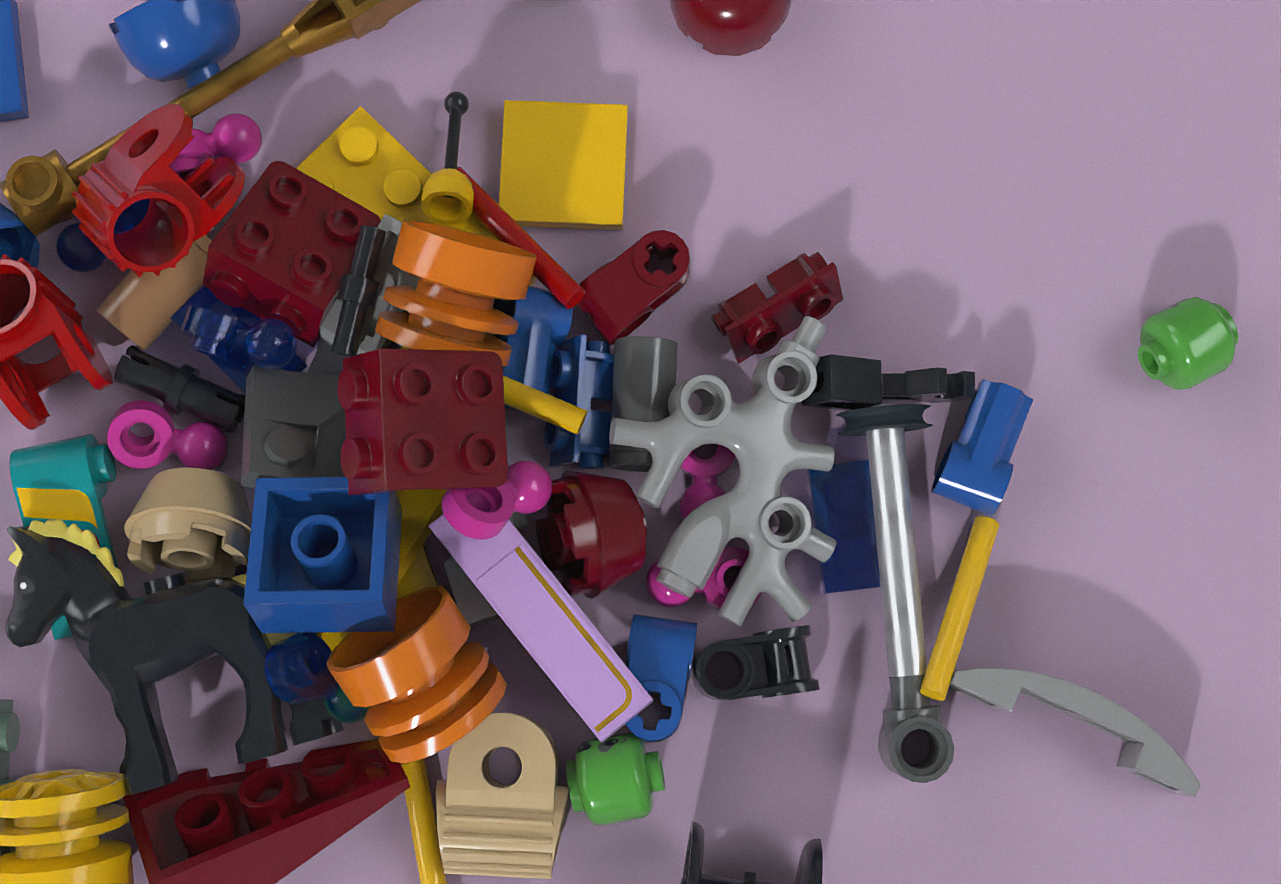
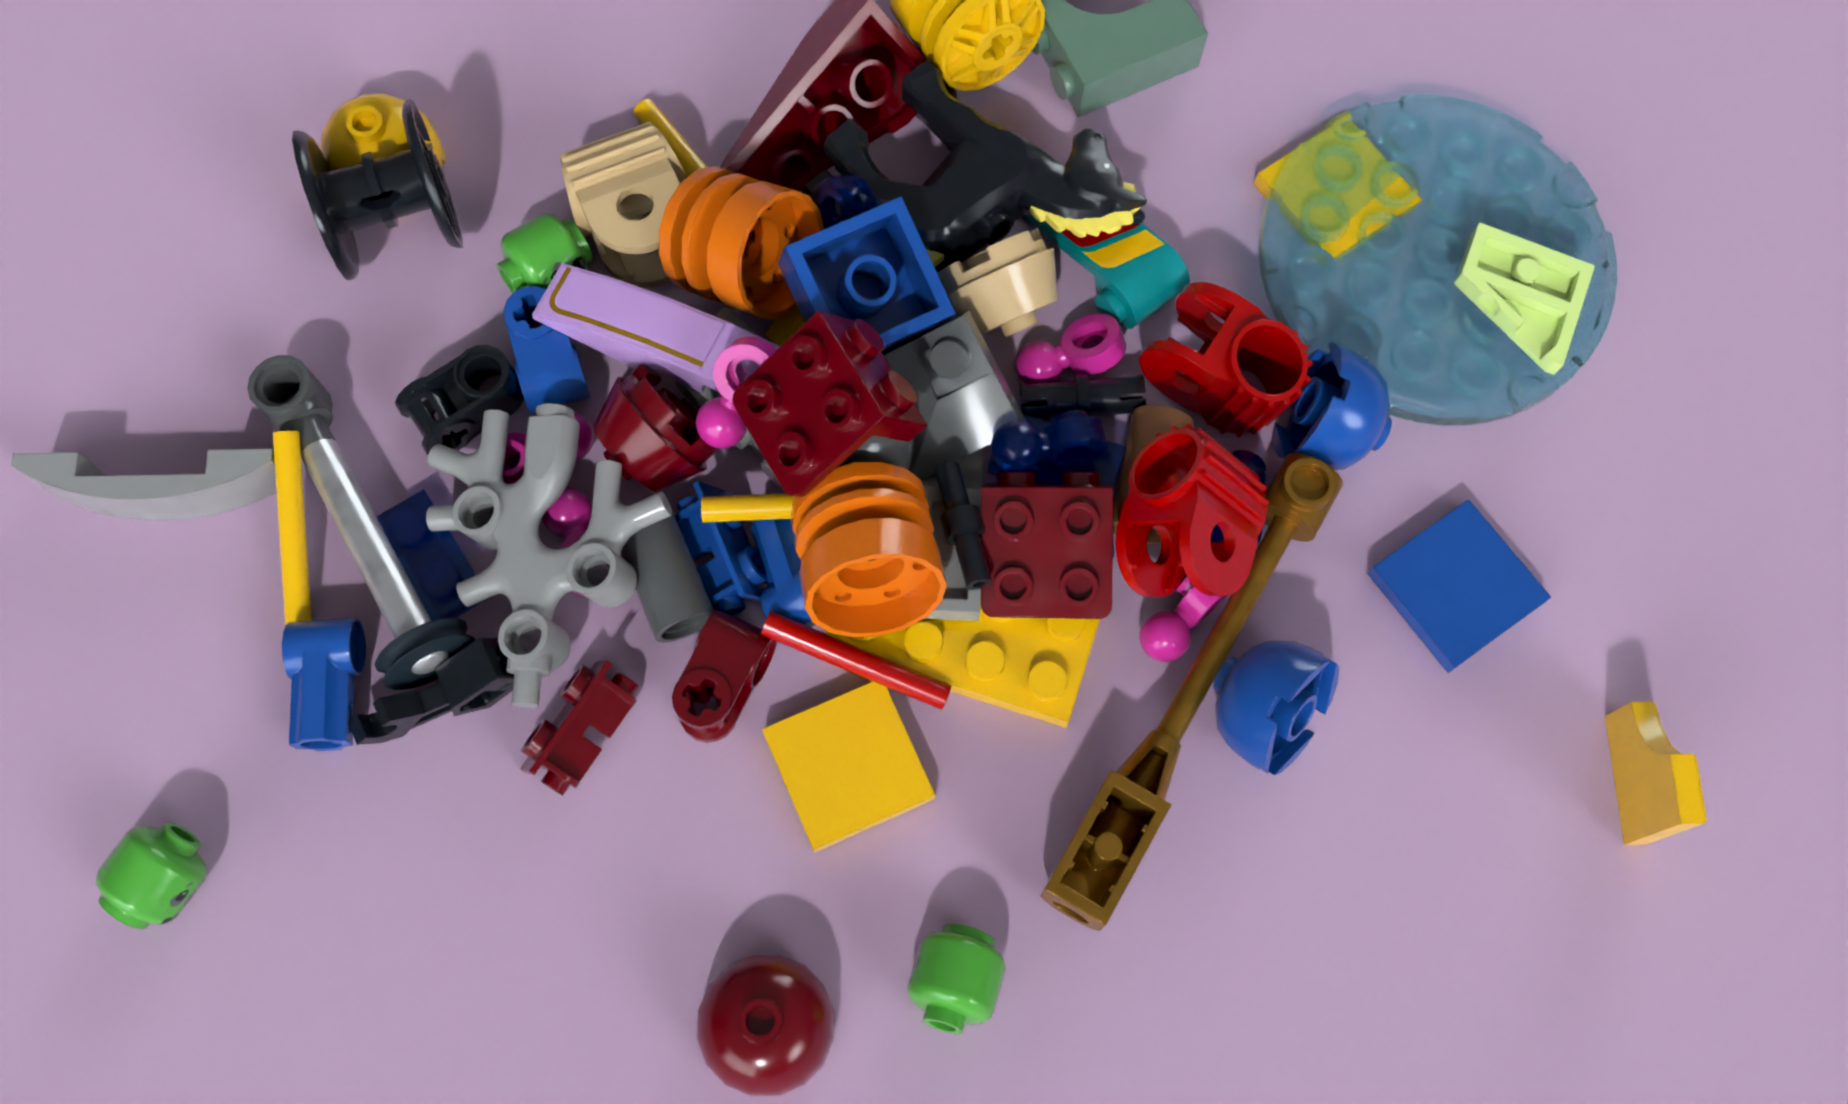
camera: 150 degrees right, 10 degrees down
(448, 192) = (934, 666): yellow hinge -> none

